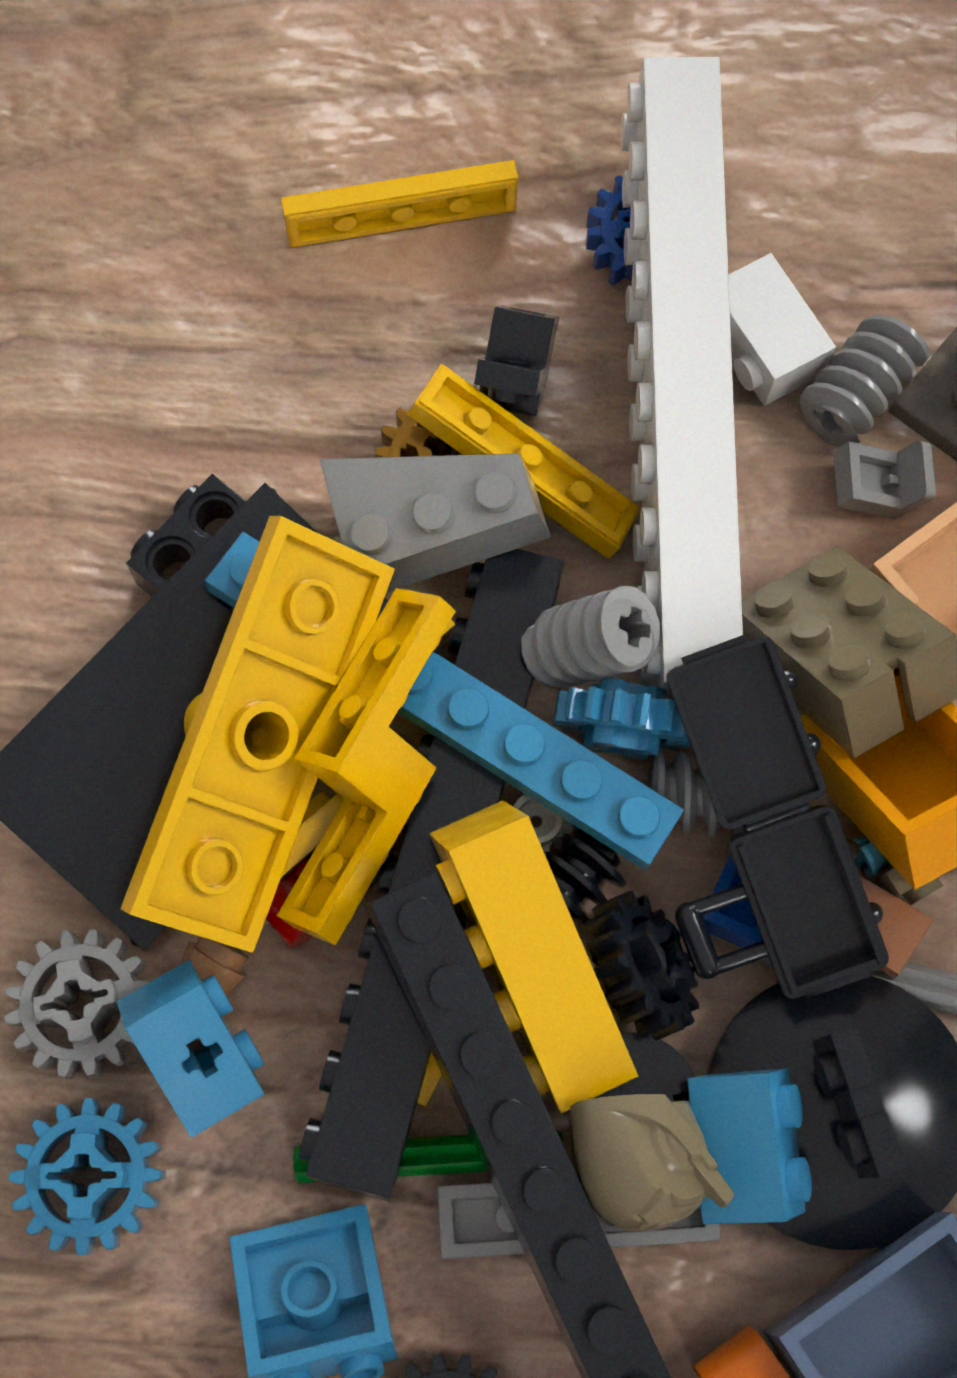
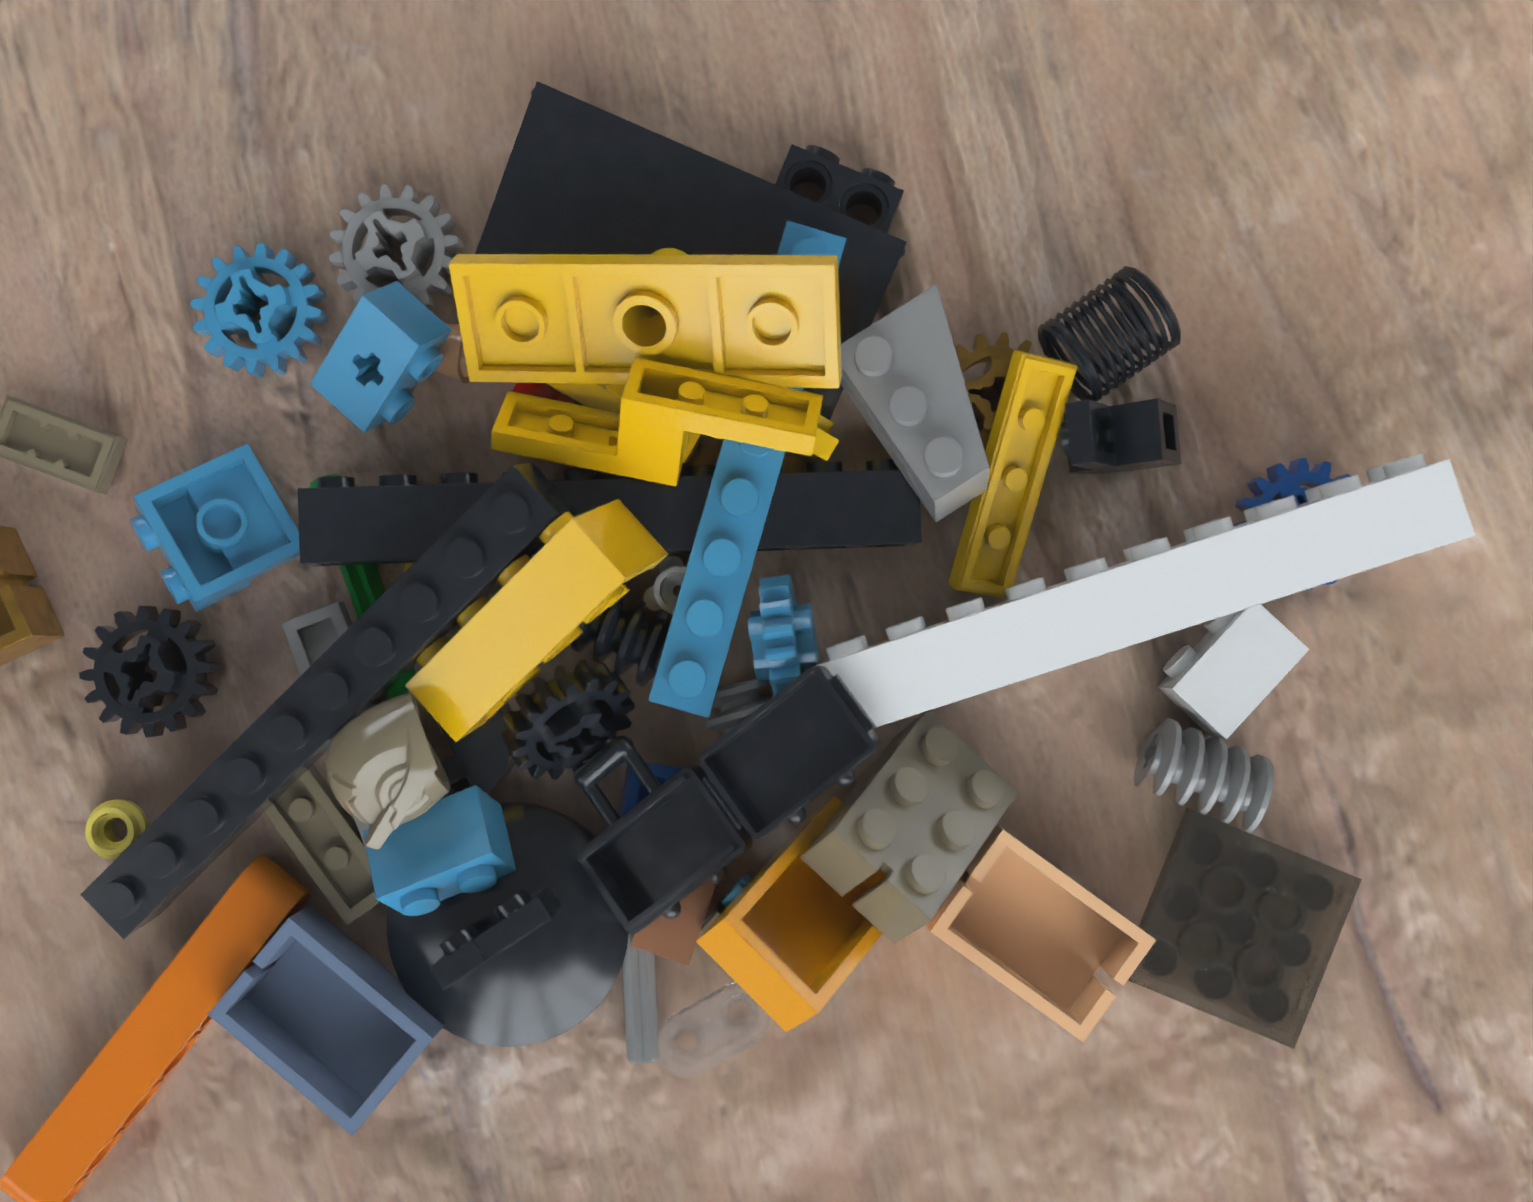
camera: 75 degrees right, 15 degrees up
(400, 203) = (1252, 272): yellow tile -> none
(412, 316) = (1133, 312): none -> black piece
(592, 638) = (840, 589): light grey piece -> none
(712, 1281) = (326, 844): none -> dark tan plate
(884, 480) = (1109, 819): light grey bracket -> none

